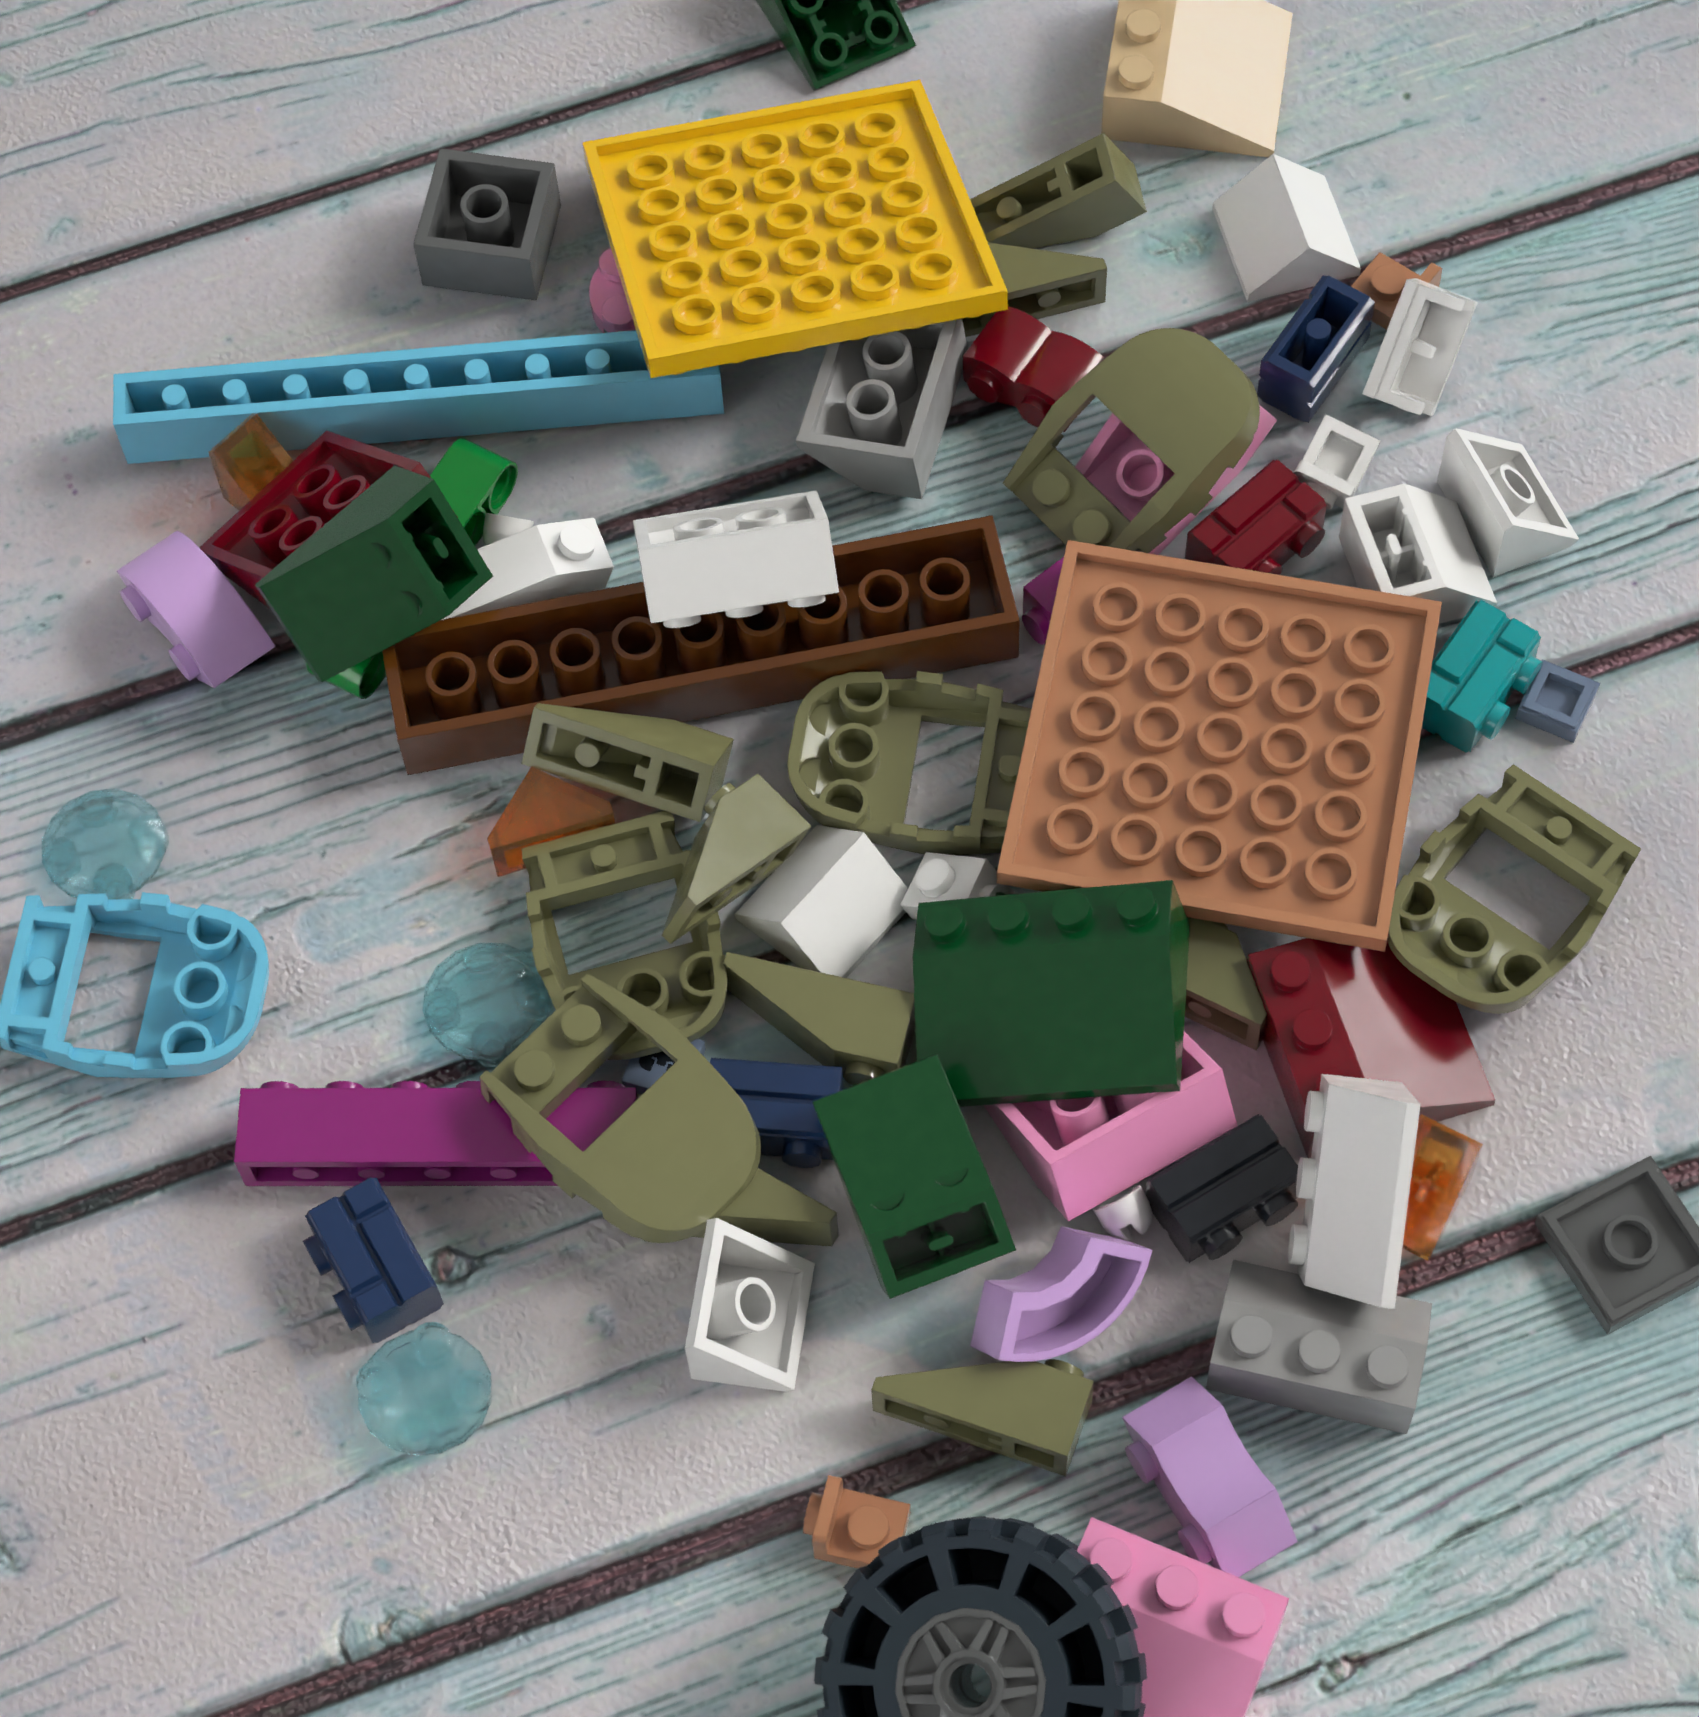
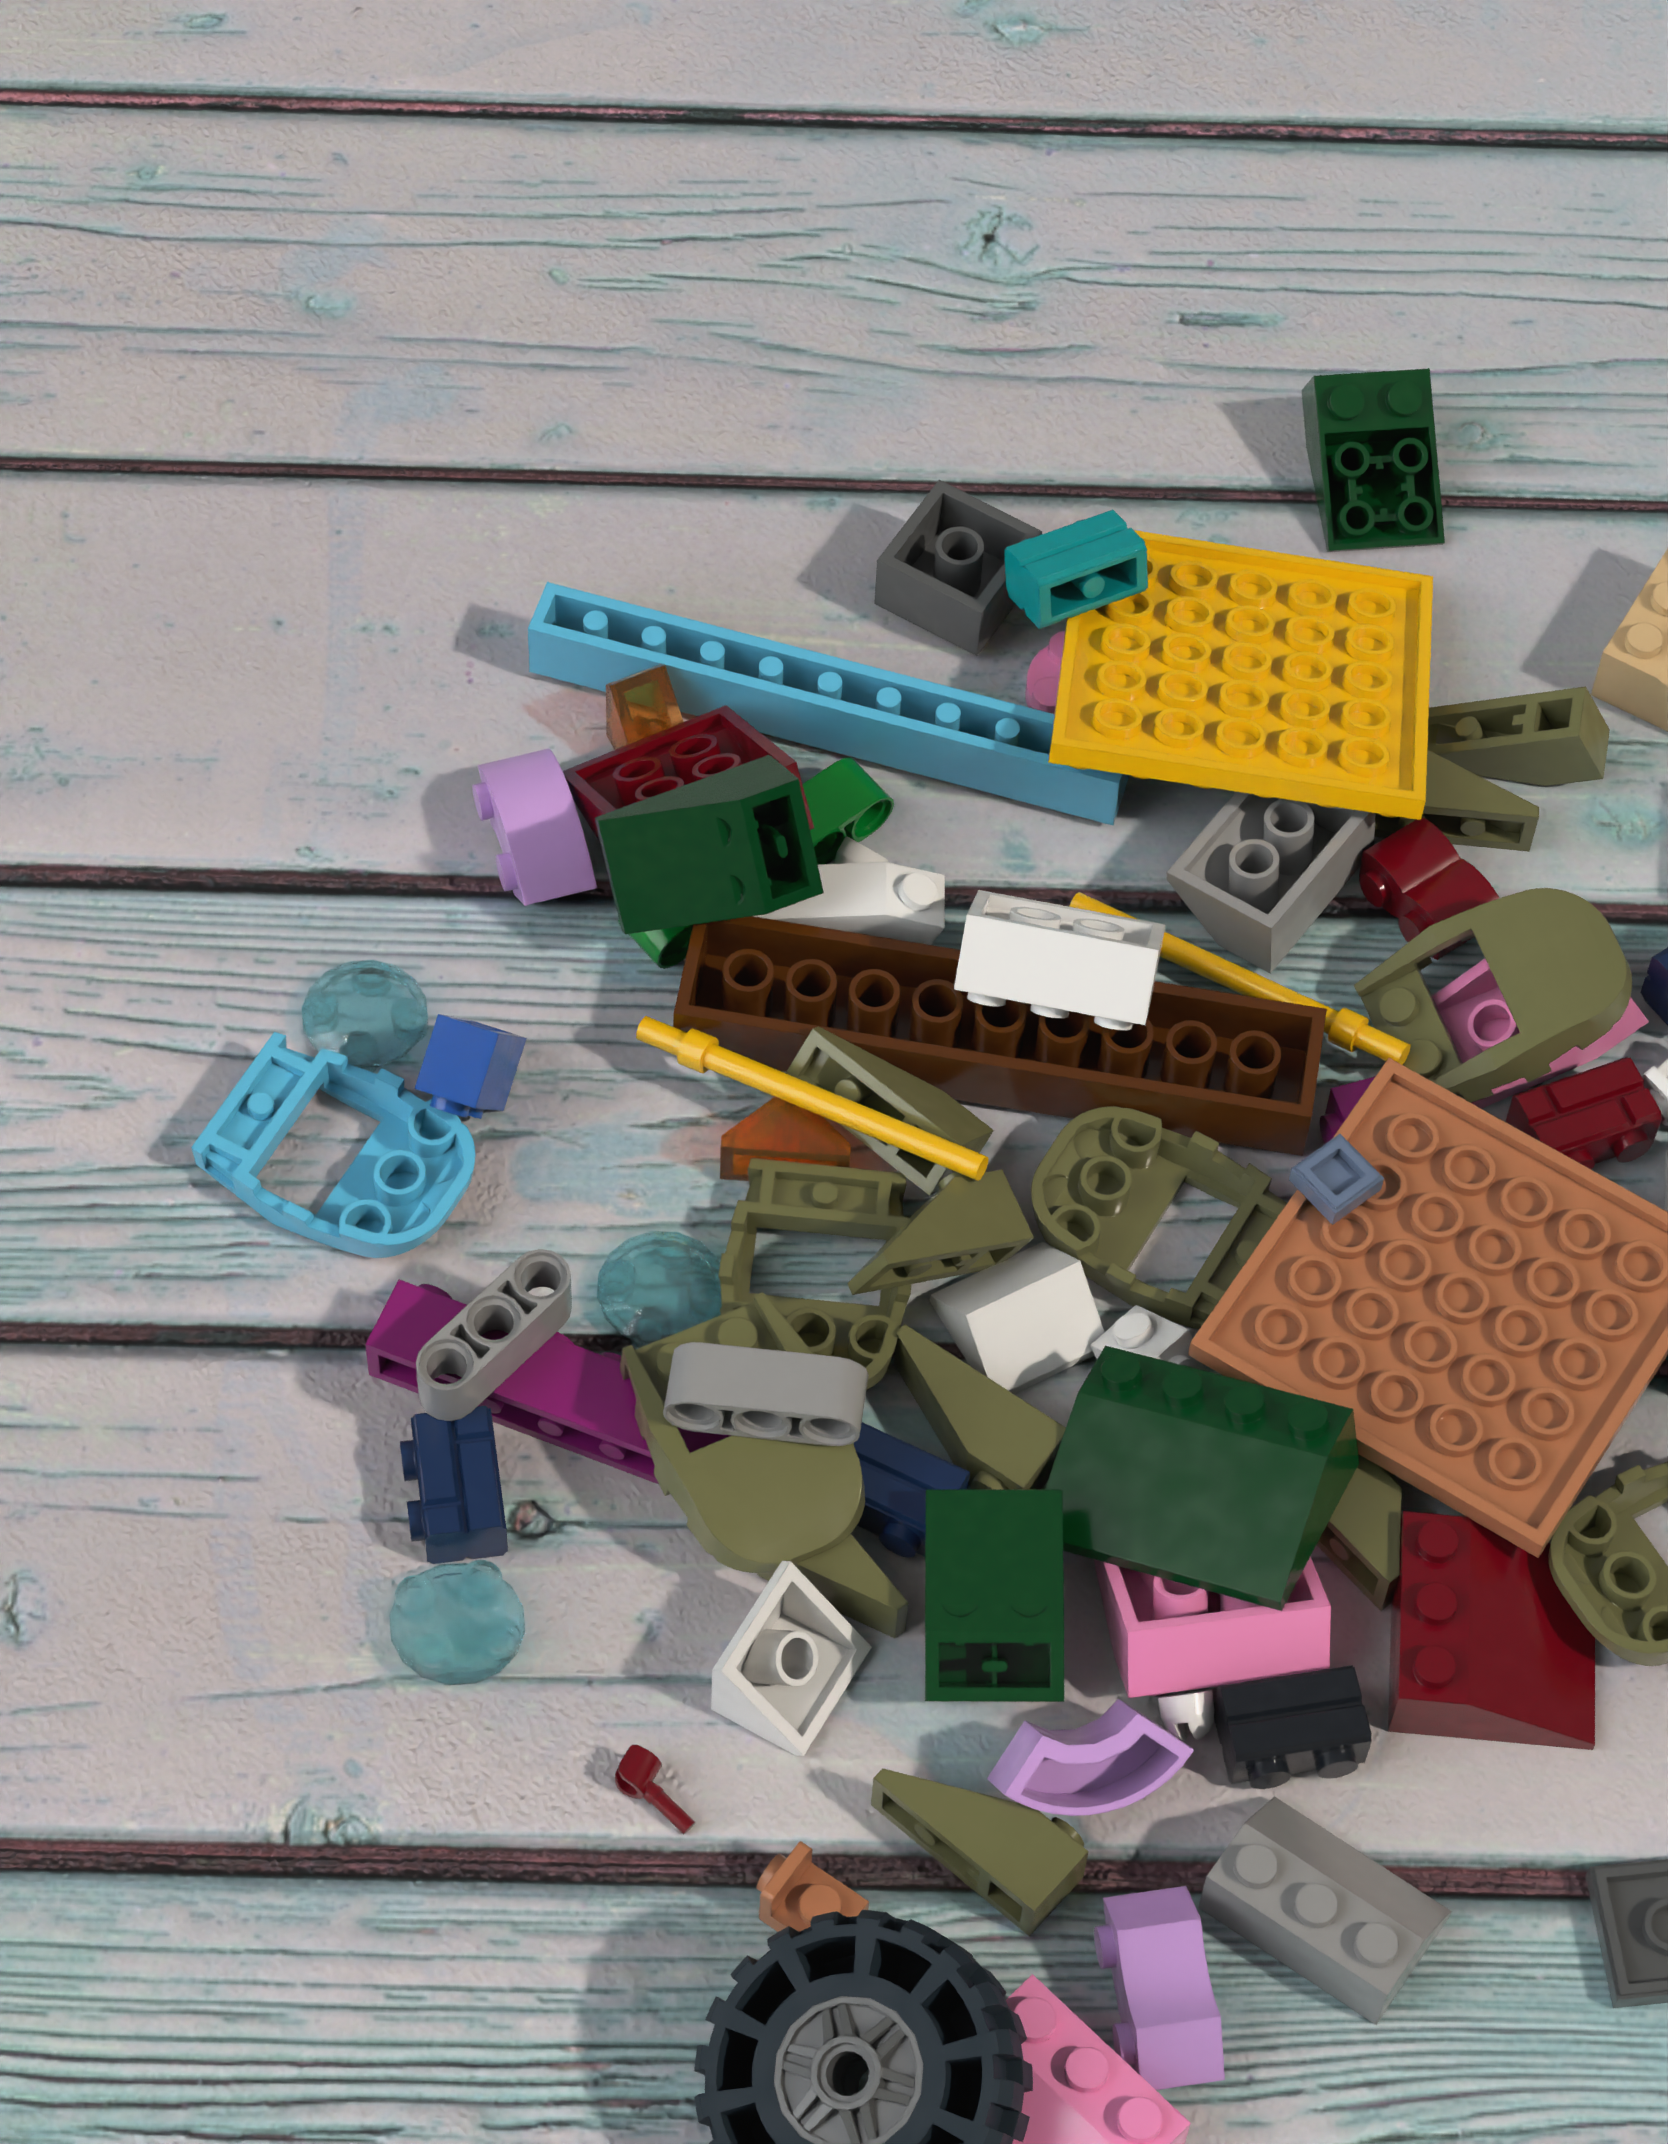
camera: 15 degrees right, 5 degrees down
(225, 860) = (469, 1066): none -> blue brick
(357, 1137) = (487, 1362): none -> light grey beam
(437, 766) = (703, 1053): none -> yellow bar
(601, 187) = (1076, 568): none -> teal brick
(633, 1071) = (766, 1394): none -> light grey beam
(649, 1473) = (636, 1778): none -> dark red hand
(1013, 525) = (1343, 1027): none -> yellow bar
(1067, 670) = (1336, 1179): none -> sand blue tile
(1355, 1188) = (1412, 1764): white slope -> none
(1439, 1179) = (1490, 1798): clear orange slope -> none

